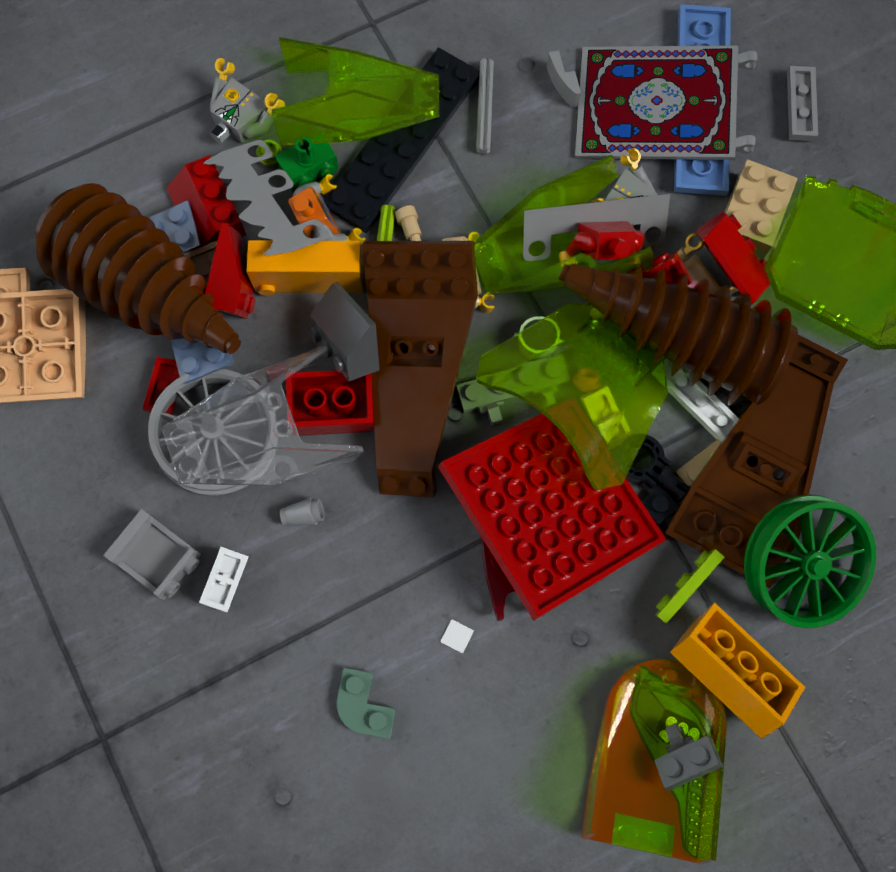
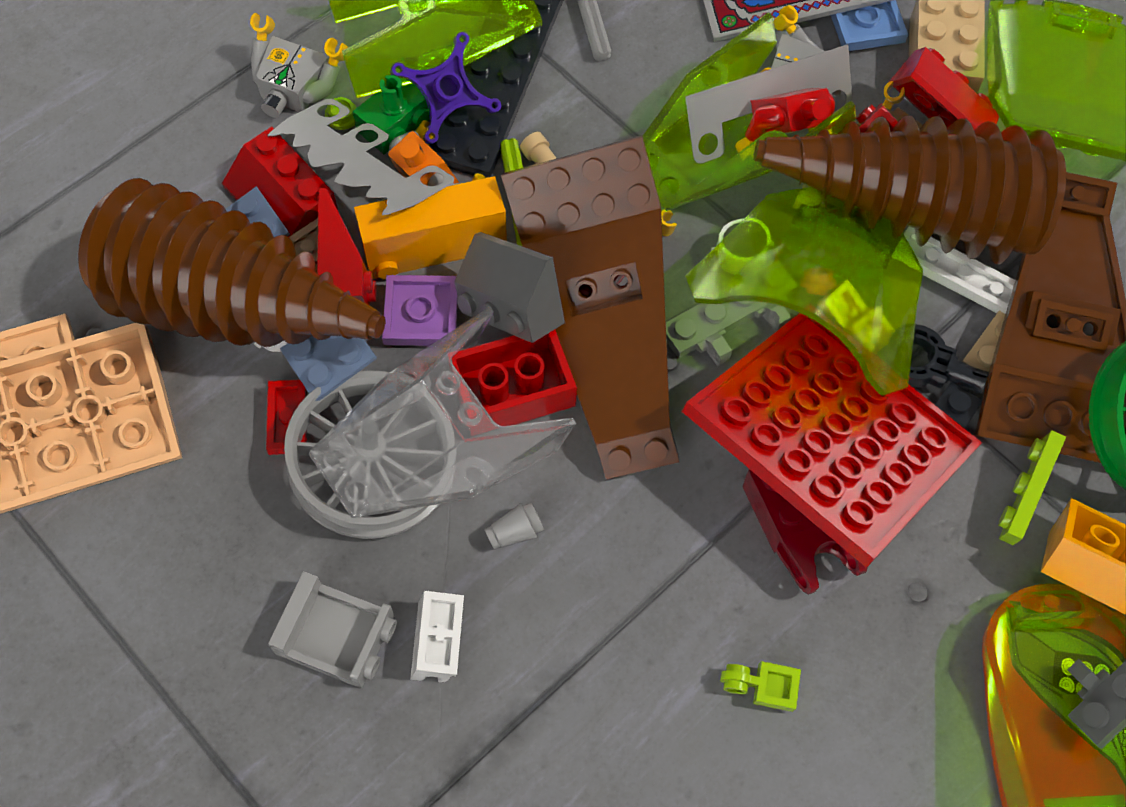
camera: 15 degrees left, 10 degrees down
(281, 328) = (419, 309): none -> medium lavender plate
(348, 155) = (446, 88): none -> dark purple piece
(355, 710) = (663, 762): sand green plate -> none
(450, 680) = (774, 685): none -> lime plate
(457, 636) = (761, 631): white sticker -> none

